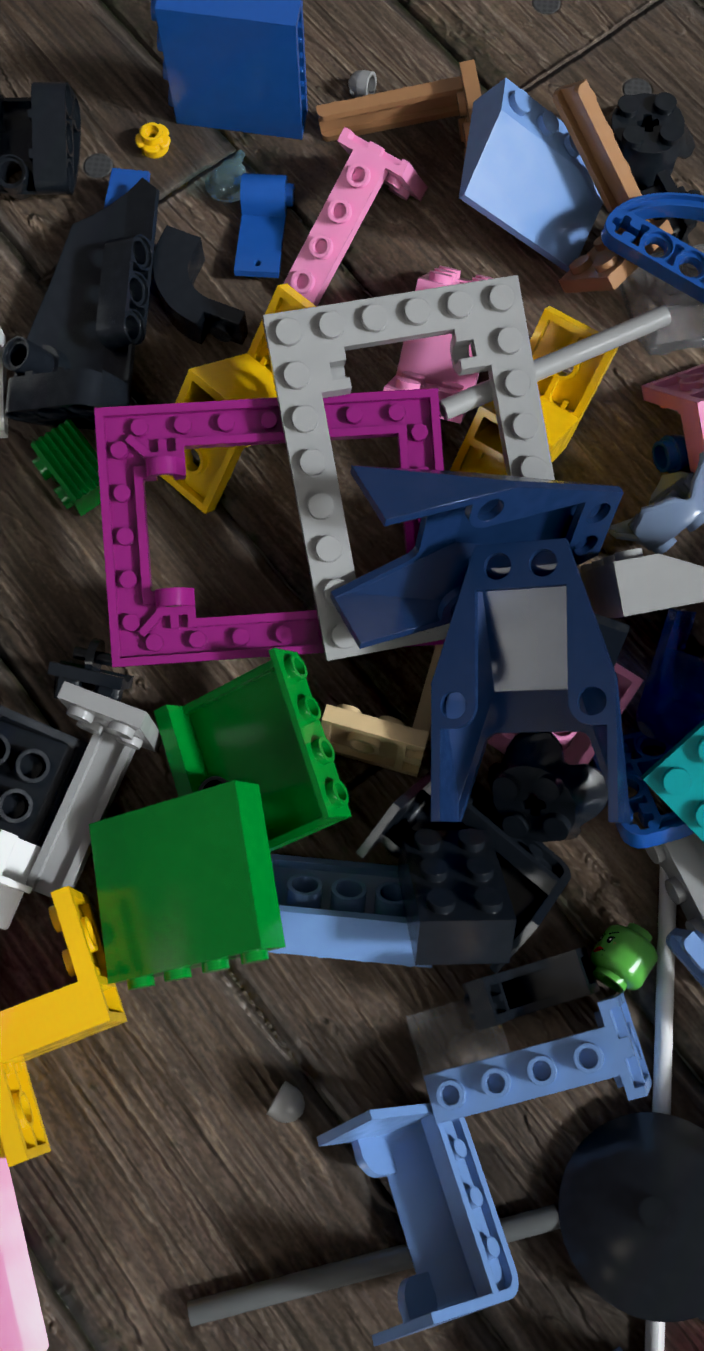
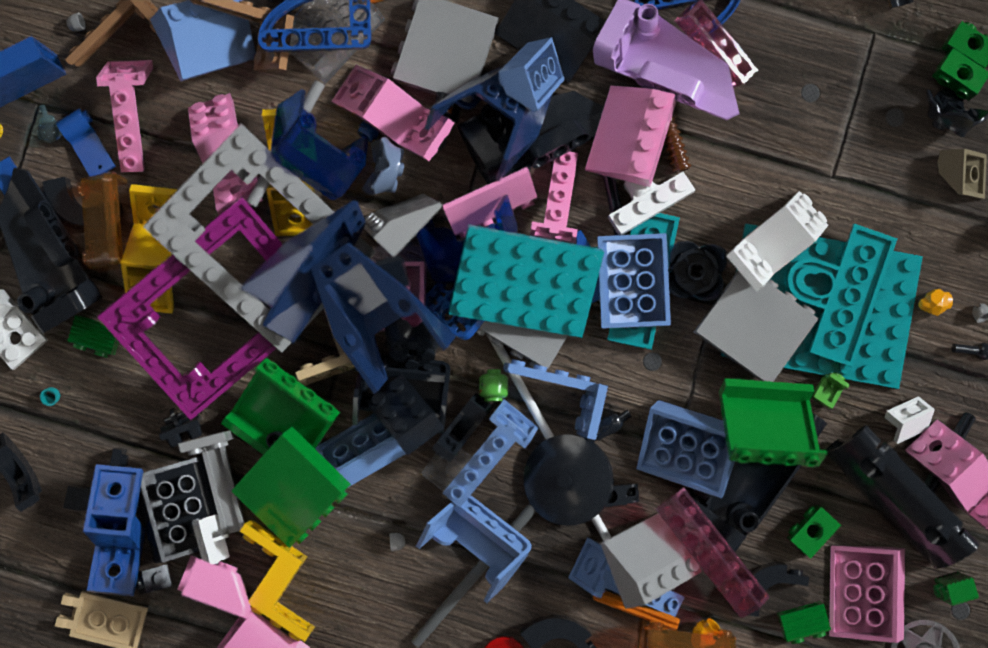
camera: 35 degrees left, 15 degrees up
(205, 311) = (101, 221): none -> clear orange windscreen
(588, 398) = (311, 156): none -> clear blue windscreen

